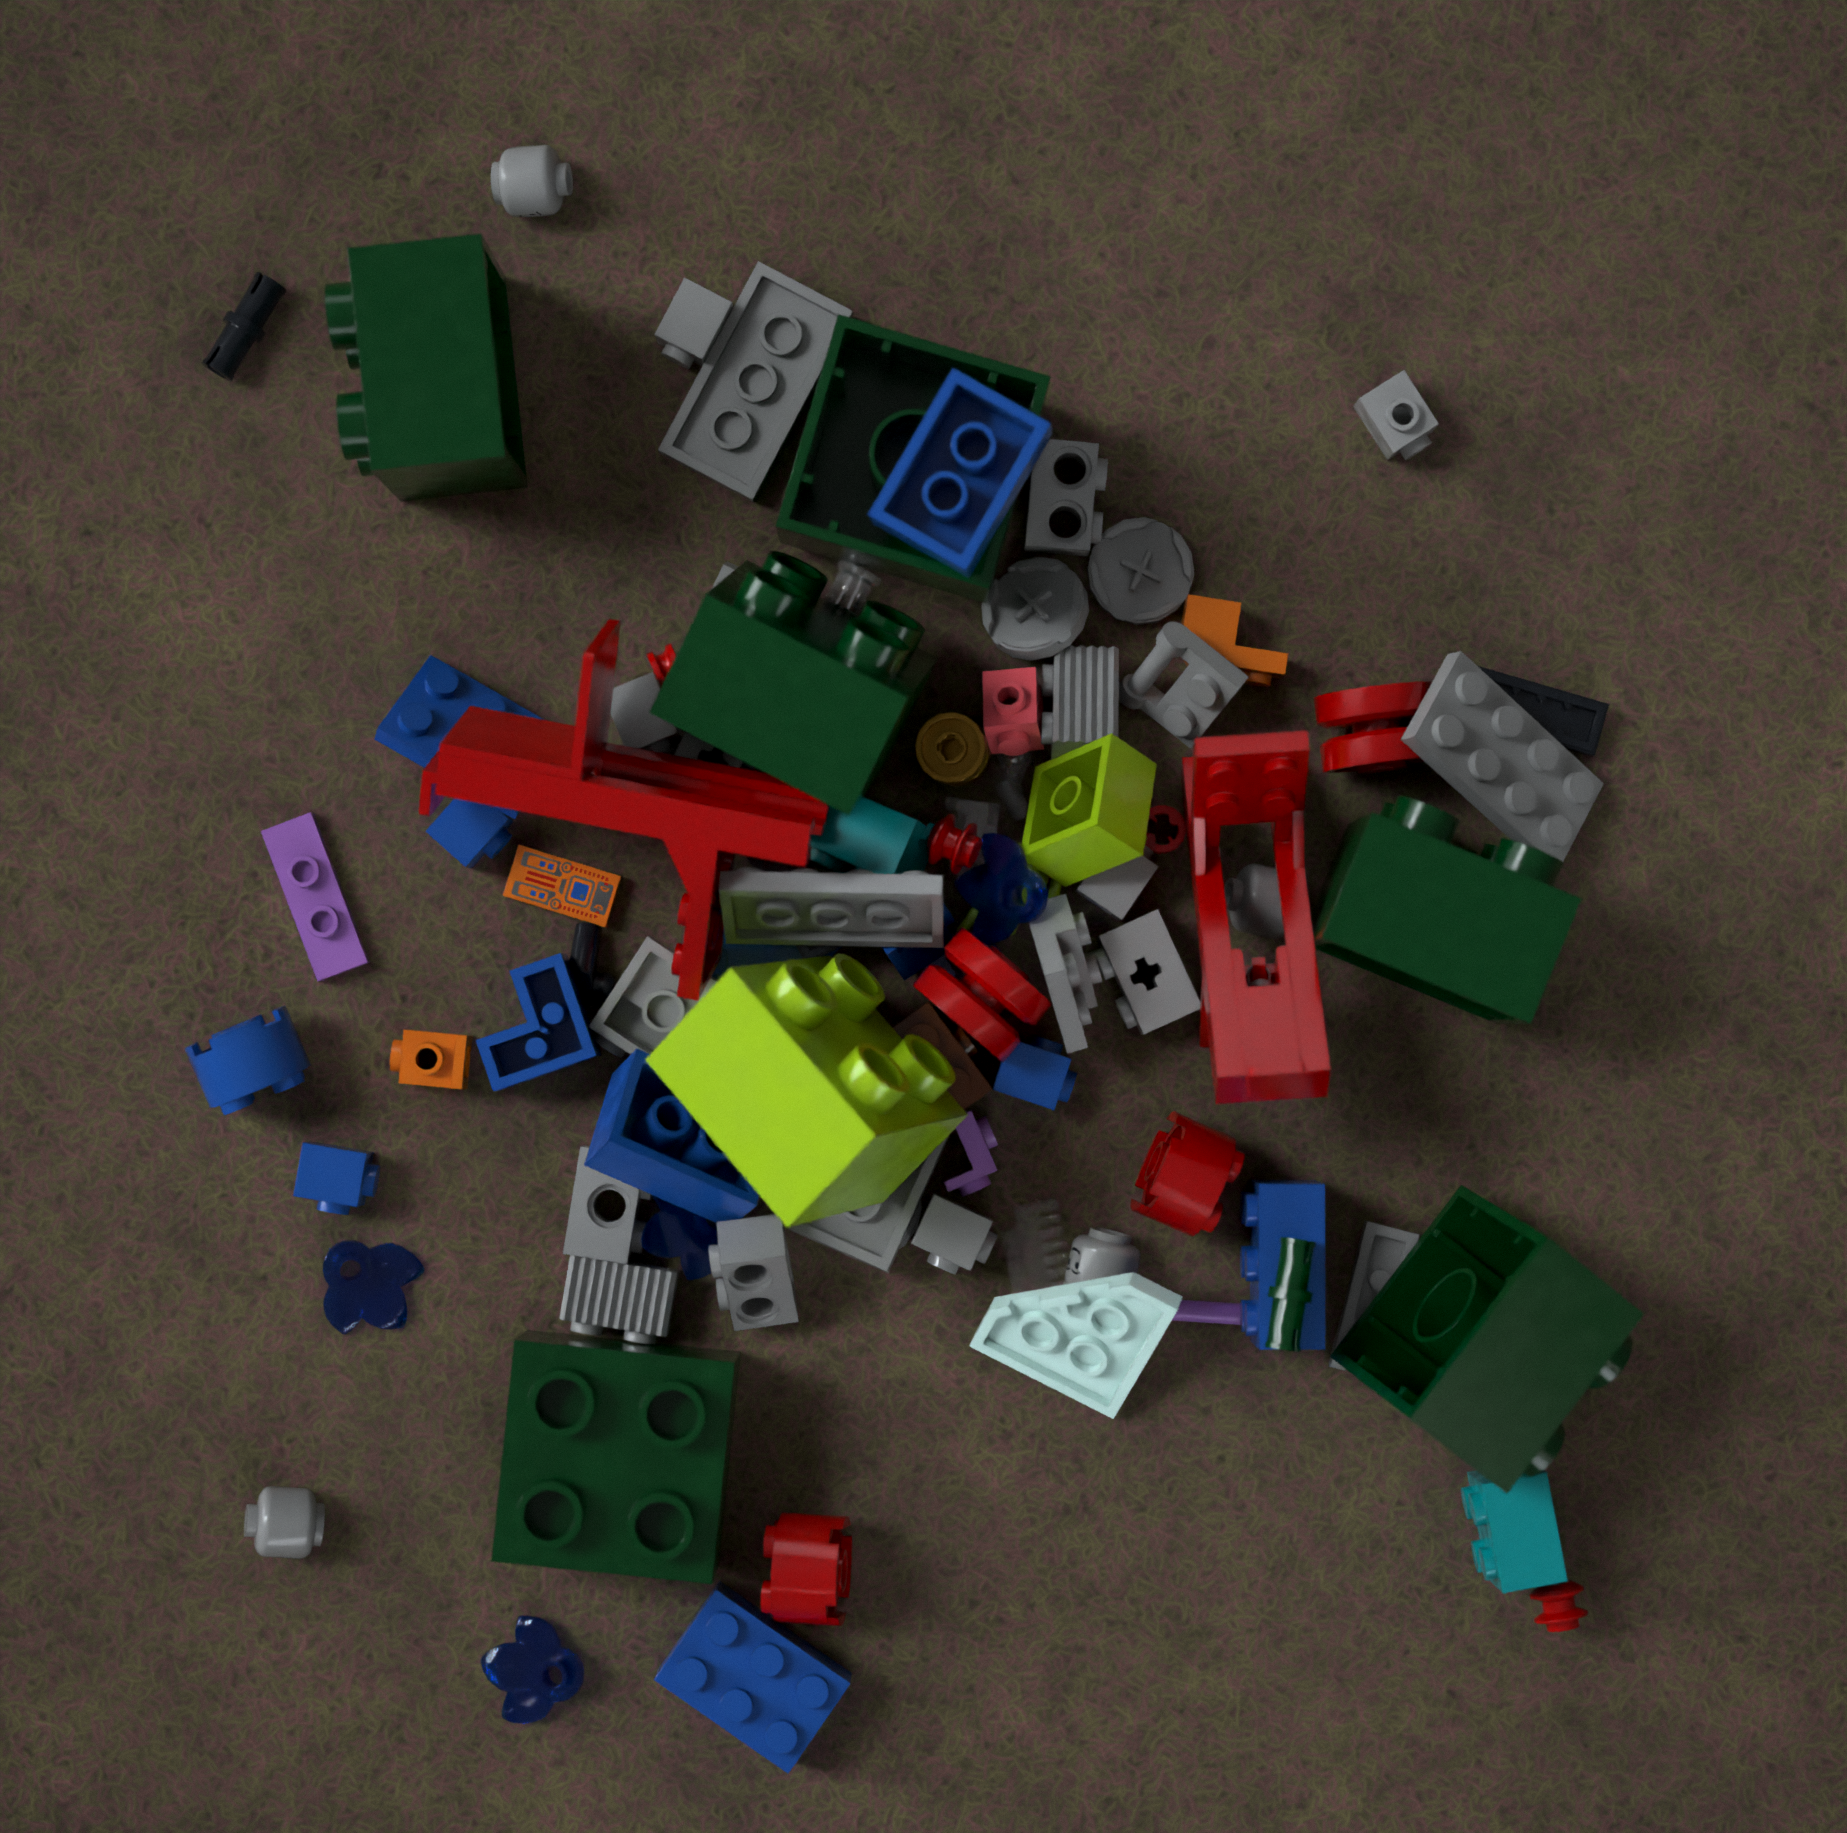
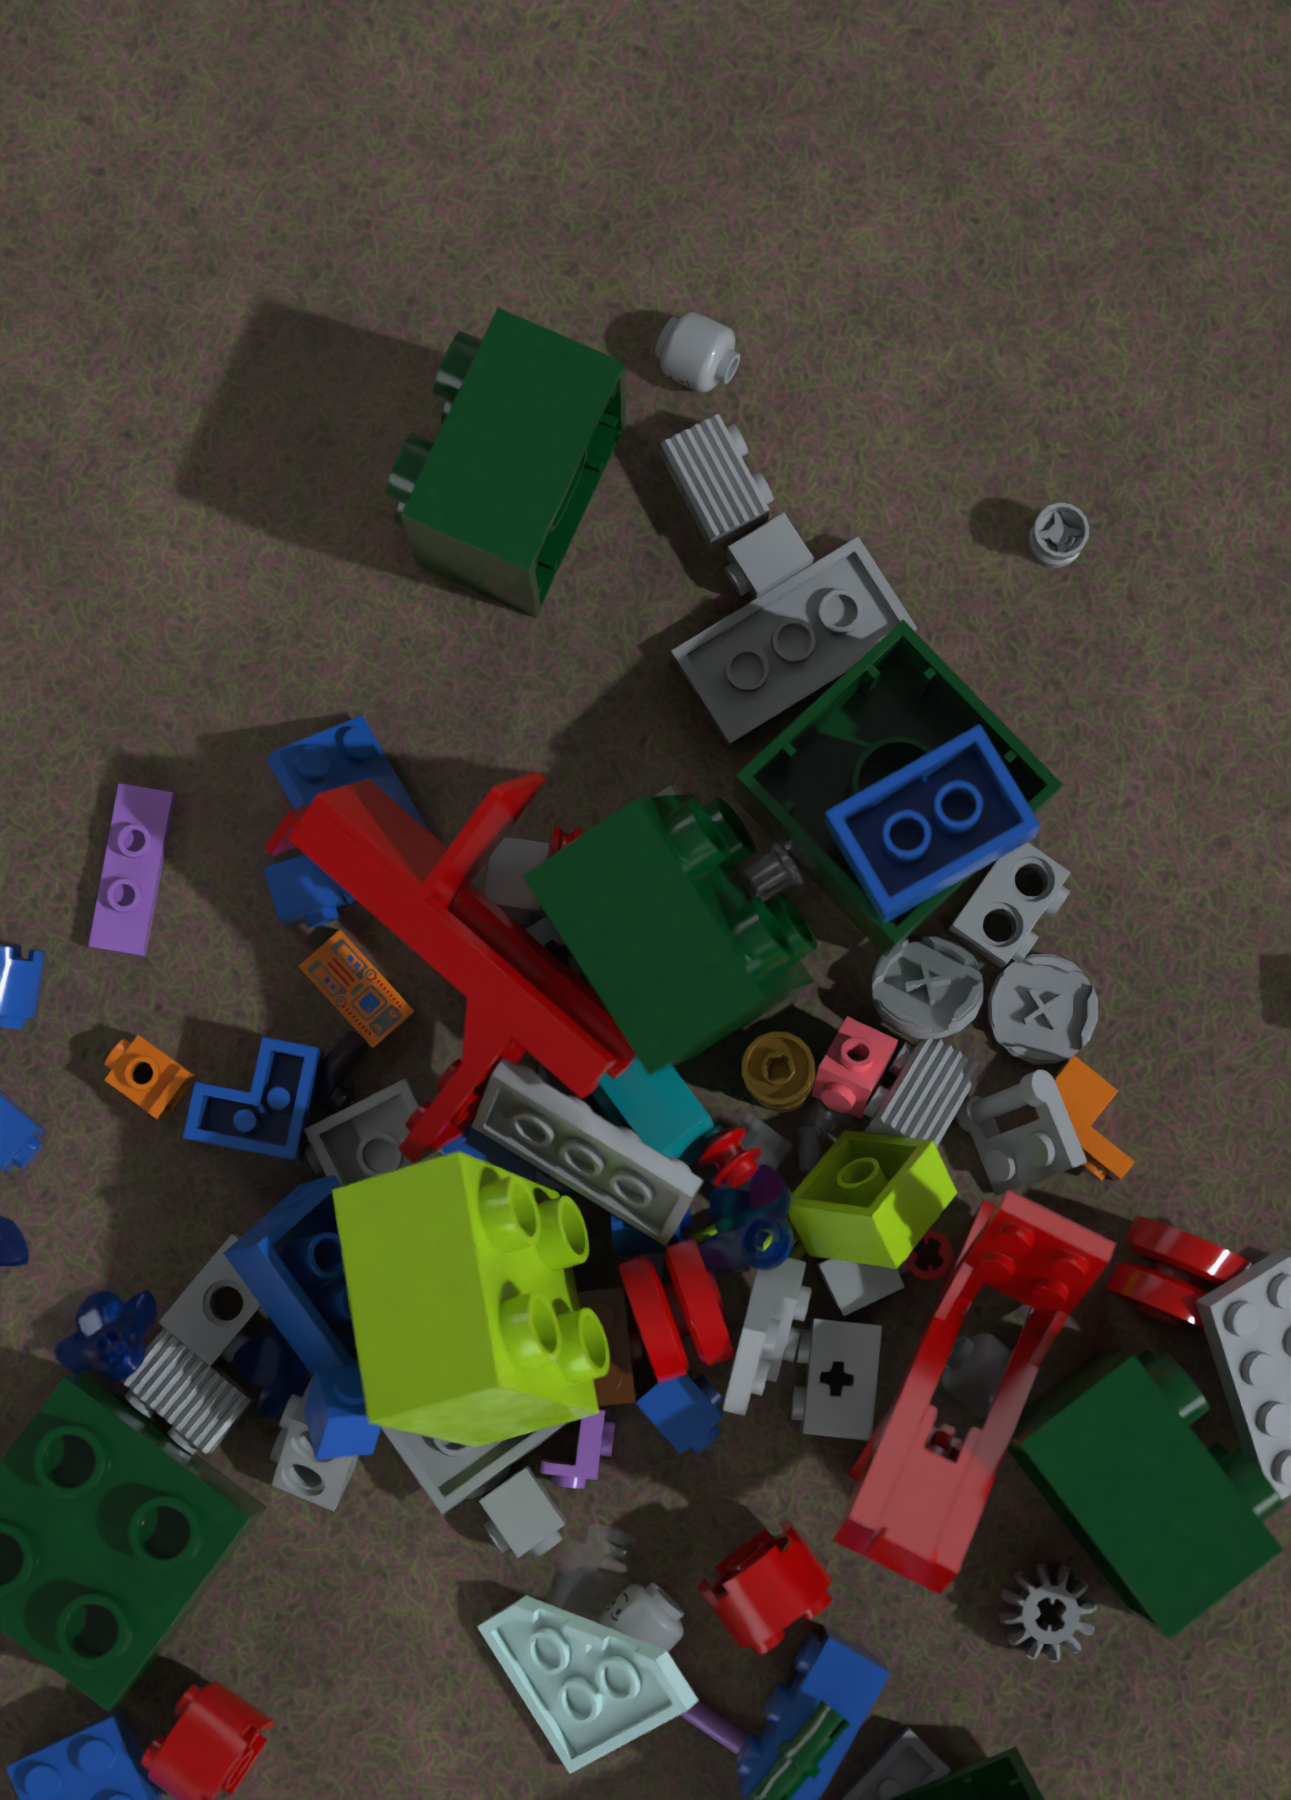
camera: 30 degrees right, 5 degrees down
(244, 326) = (370, 334): black pin -> none
(527, 1288) = (108, 1334): none -> clear blue plate
(610, 282) = (716, 481): none -> light grey brick
(757, 1237) = (338, 1414): none -> blue brick
(922, 153) = (1061, 525): none -> light grey wheel
(1409, 1070) = (1027, 1611): none -> light grey gear

